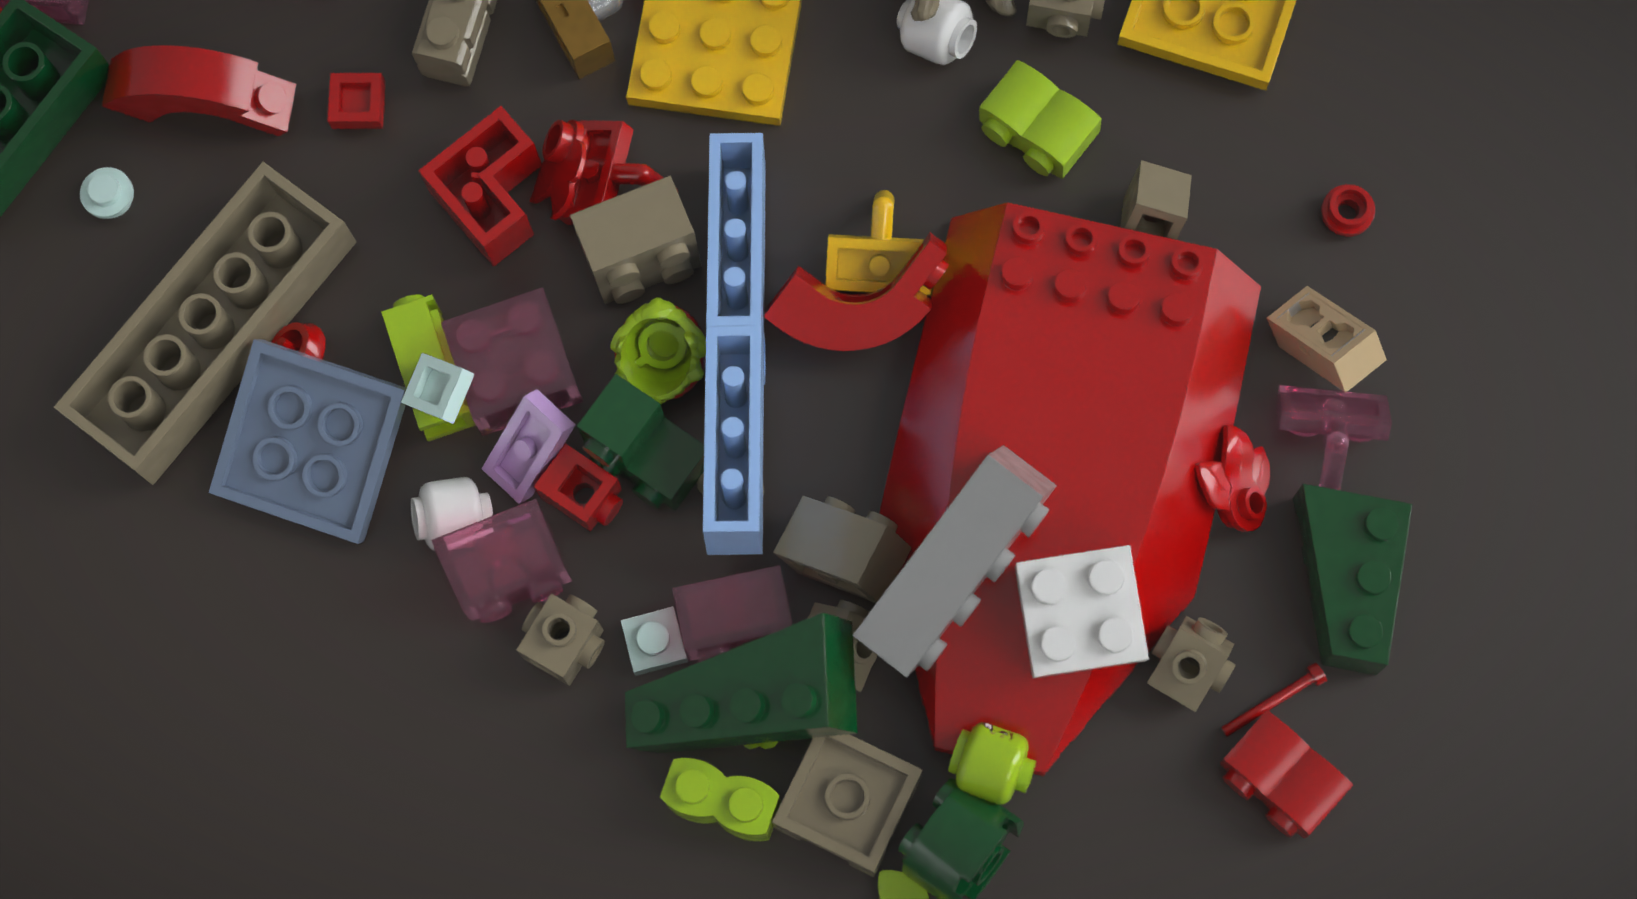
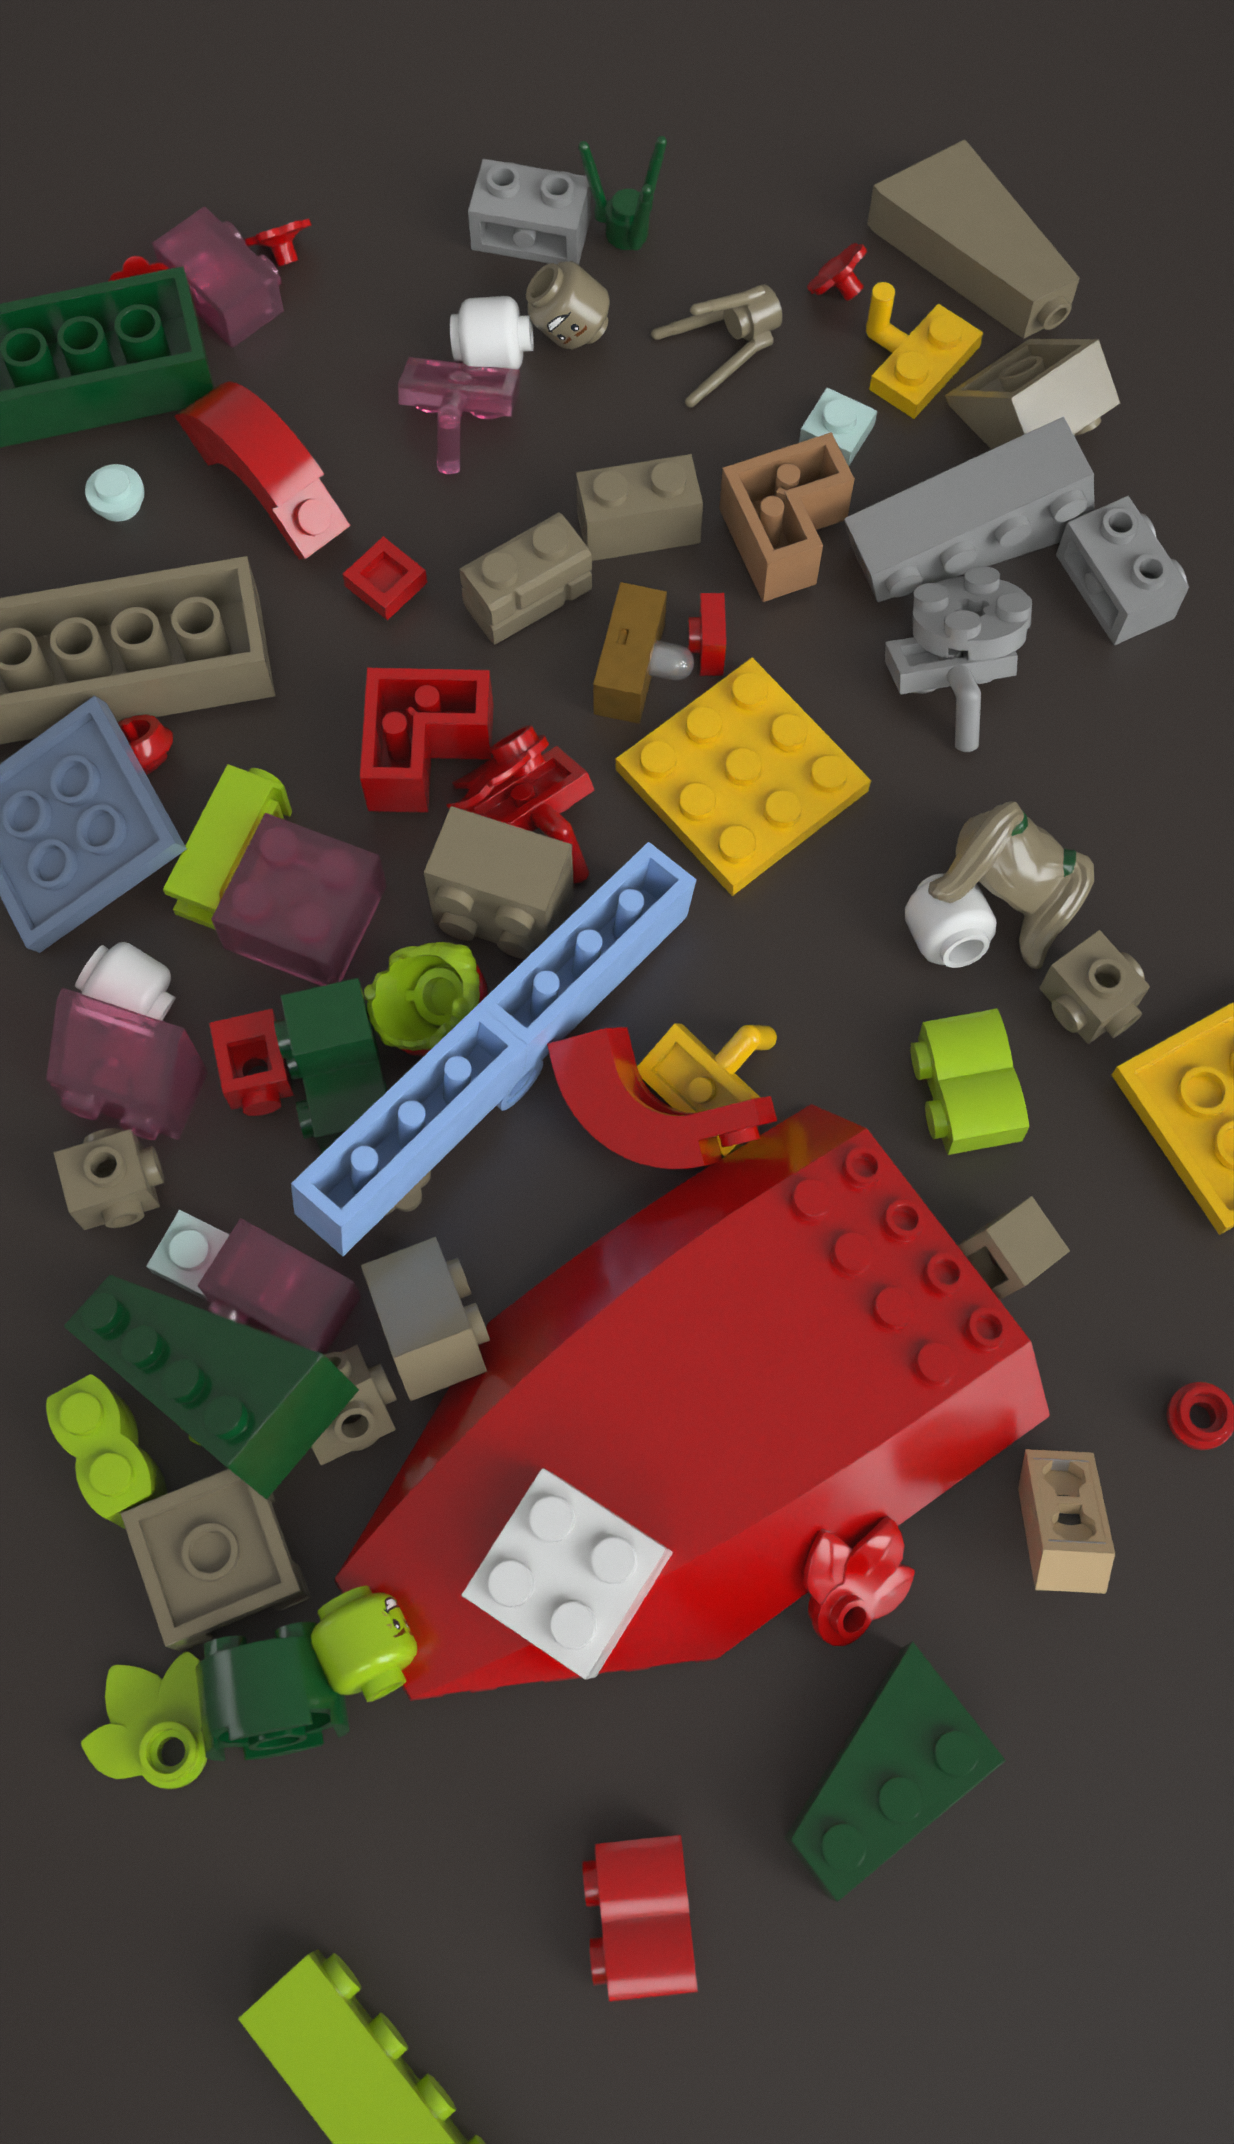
camera: 35 degrees right, 5 degrees down
(437, 388) = (203, 865): light aqua plate -> none
(528, 445) = (241, 981): lavender plate -> none
(954, 560) = (498, 1413): light grey wedge -> none
(1182, 676) = (651, 1719): dark tan brick -> none
(1315, 675) = (765, 1842): red piece -> none
(1336, 415) = (1008, 1606): clear pink plate -> none

